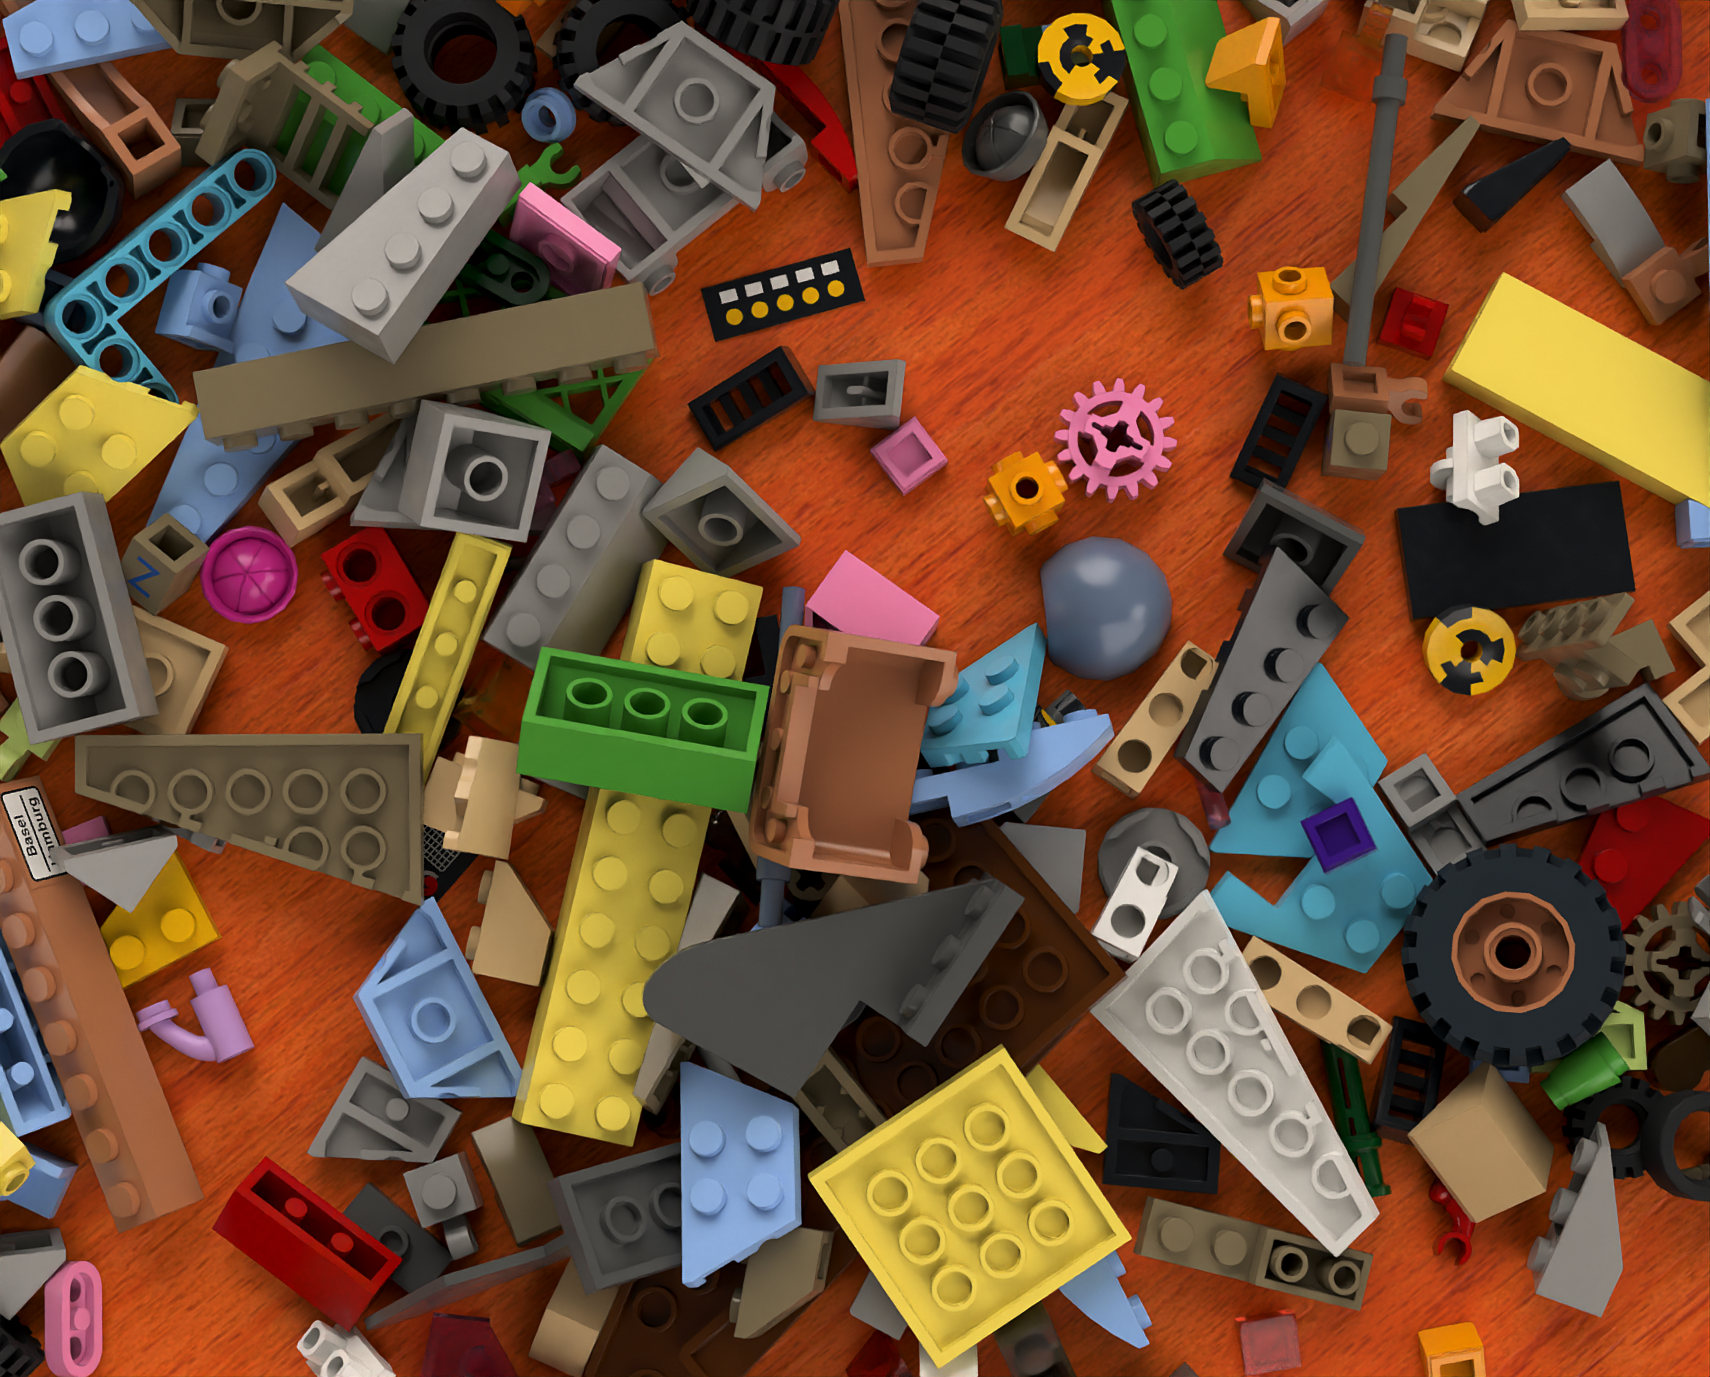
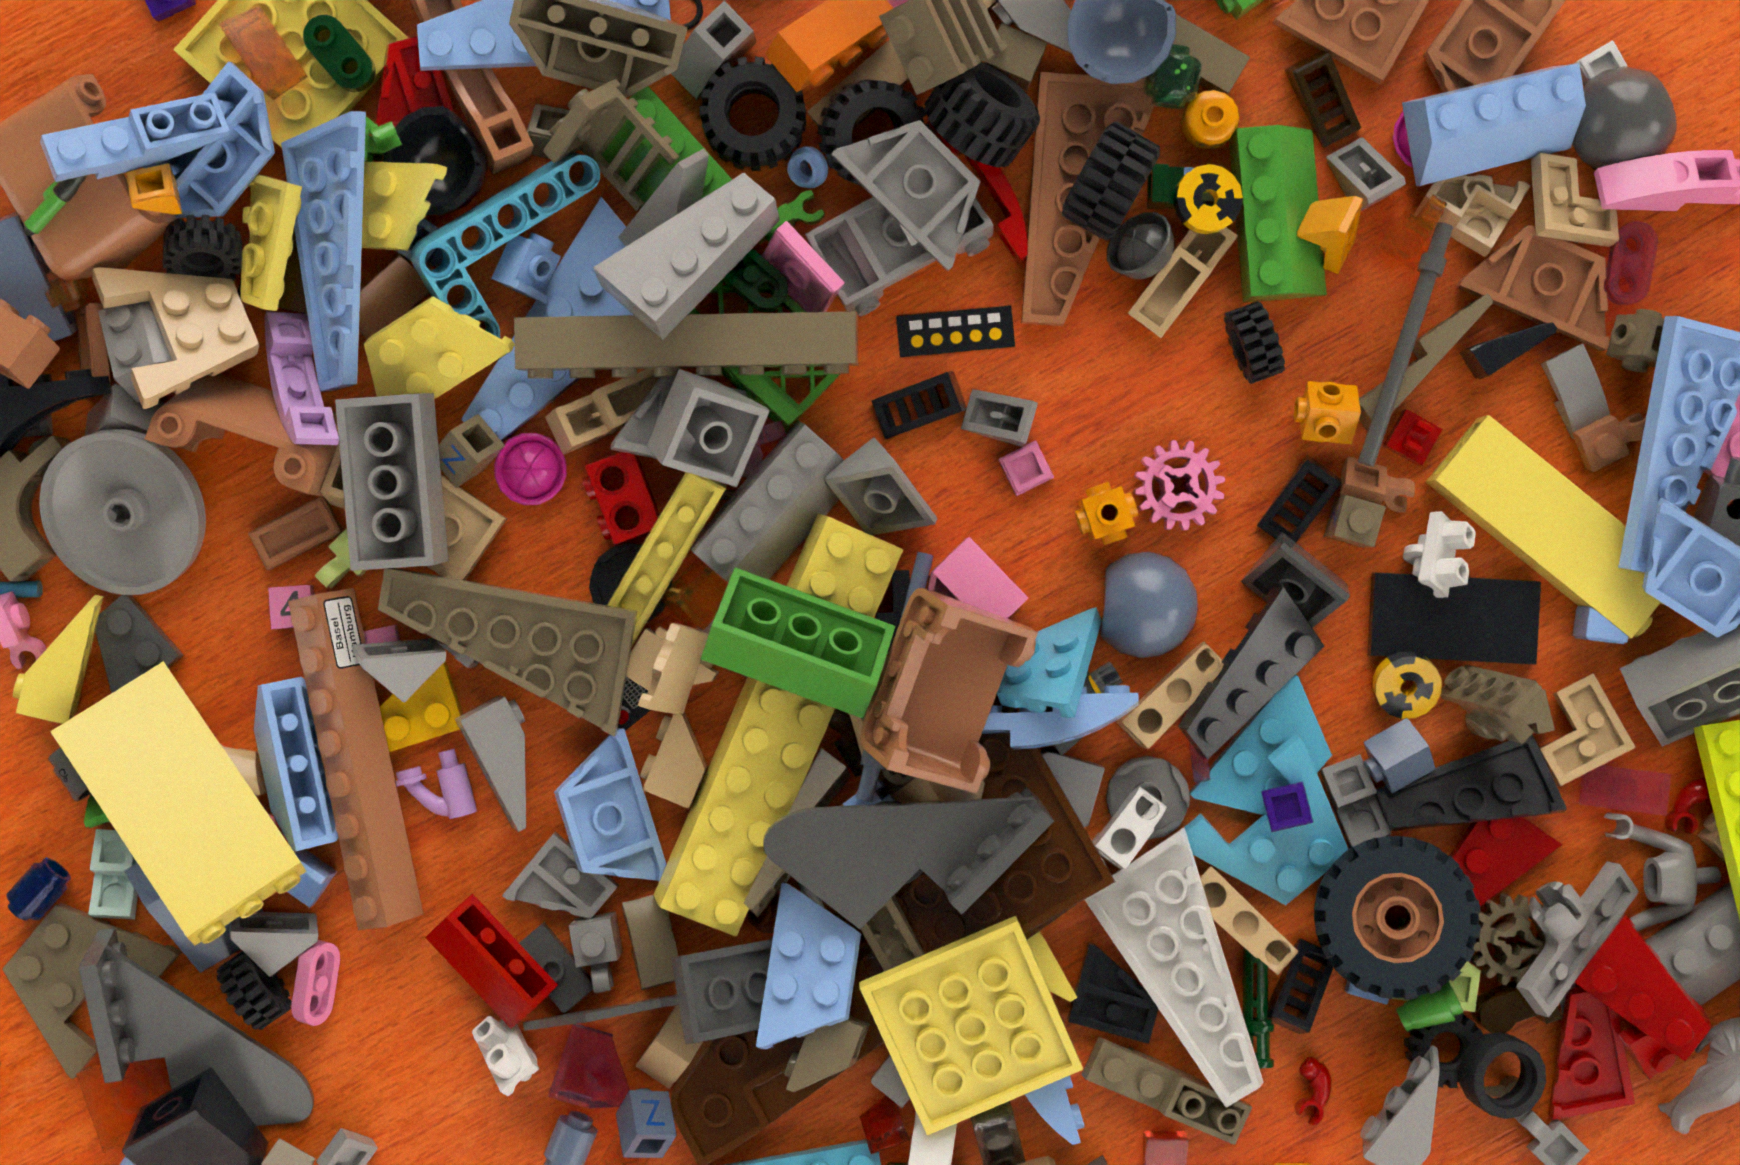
camera: 15 degrees right, 5 degrees up
(270, 957) = (499, 748): none -> light grey slope
(1475, 744) = (1398, 756): none -> sand blue brick
(1485, 1145) = (1348, 1046): tan slope -> none

